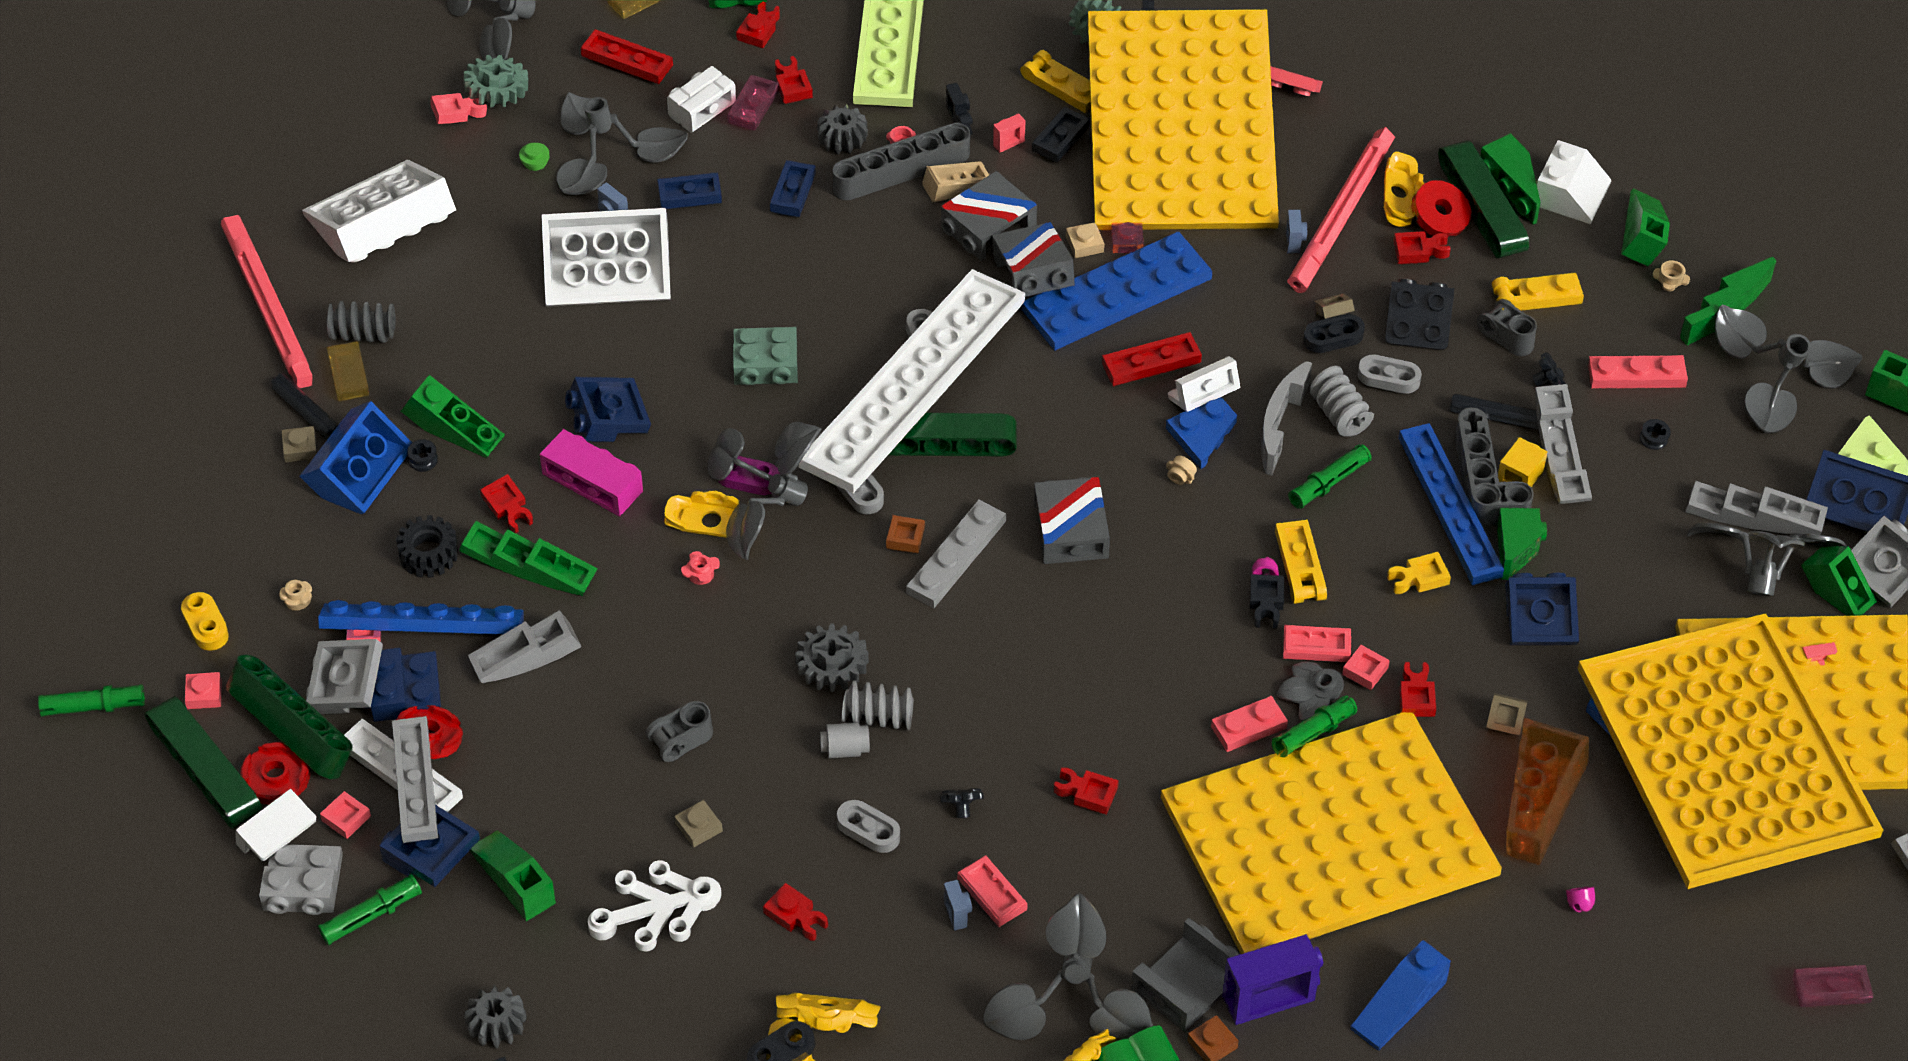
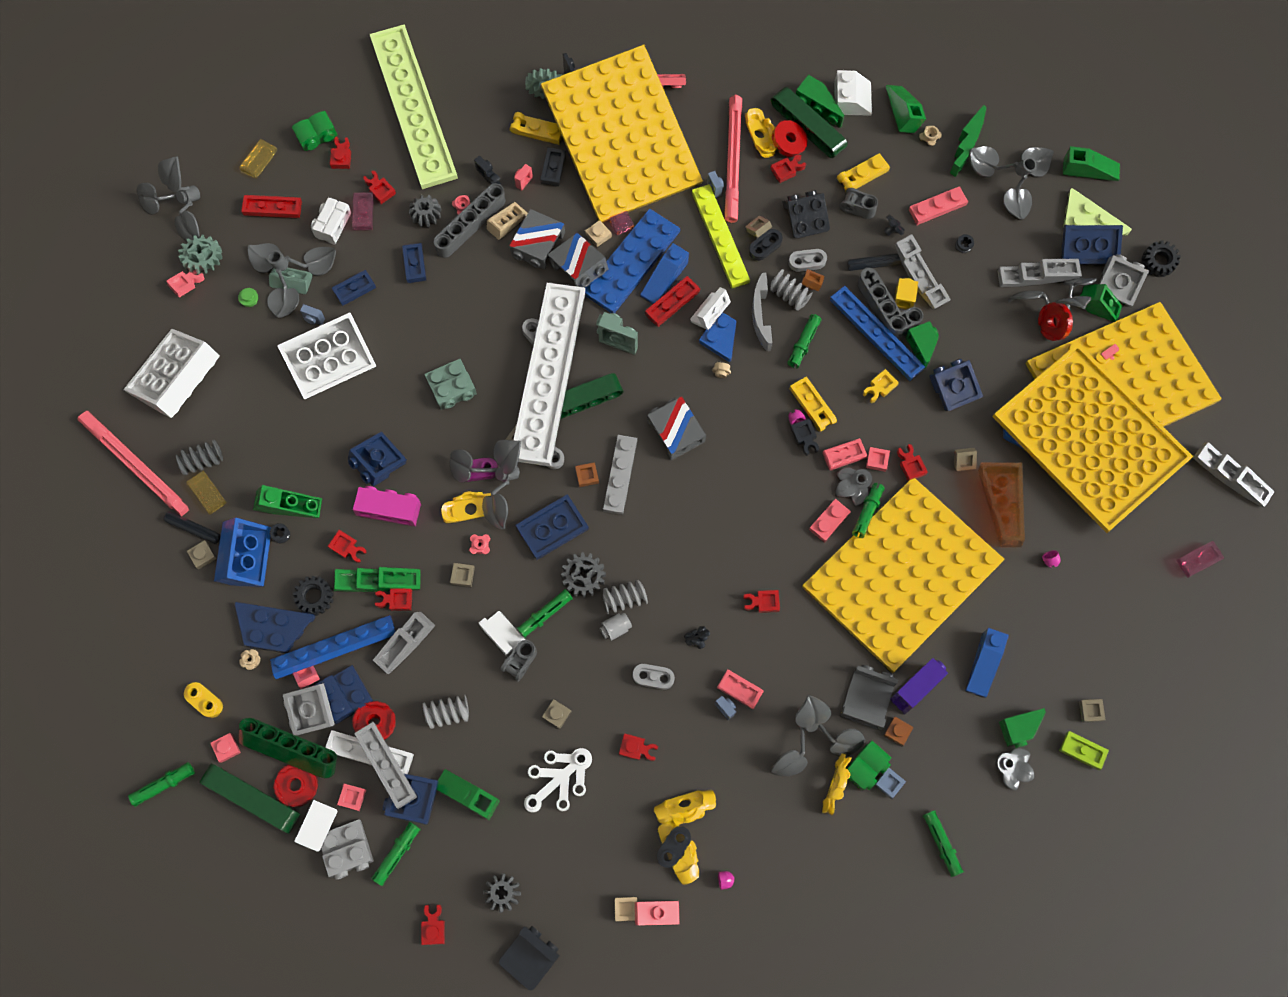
camera: 25 degrees left, 20 degrees up
(348, 566) = (271, 627): none -> dark blue wing
(372, 1028) = (432, 930): none -> red plate
(538, 757) = (446, 712): none -> light grey piece
(544, 594) = (397, 599): none -> red plate
(608, 152) = (294, 279): none -> sand green slope
(654, 596) = (462, 575): none -> dark tan plate
(669, 685) = (501, 632): none -> white panel
(744, 688) = (537, 619): none -> green pin
(818, 582) = (552, 527): none -> dark blue plate
(1041, 367) = (615, 335): none -> sand green plate
(1163, 317) = (665, 273): none -> blue slope
(1270, 303) = (720, 236): none -> neon yellow plate
(1383, 401) = (812, 280): none -> dark orange plate
(1745, 575) = (1063, 317): none -> red tile

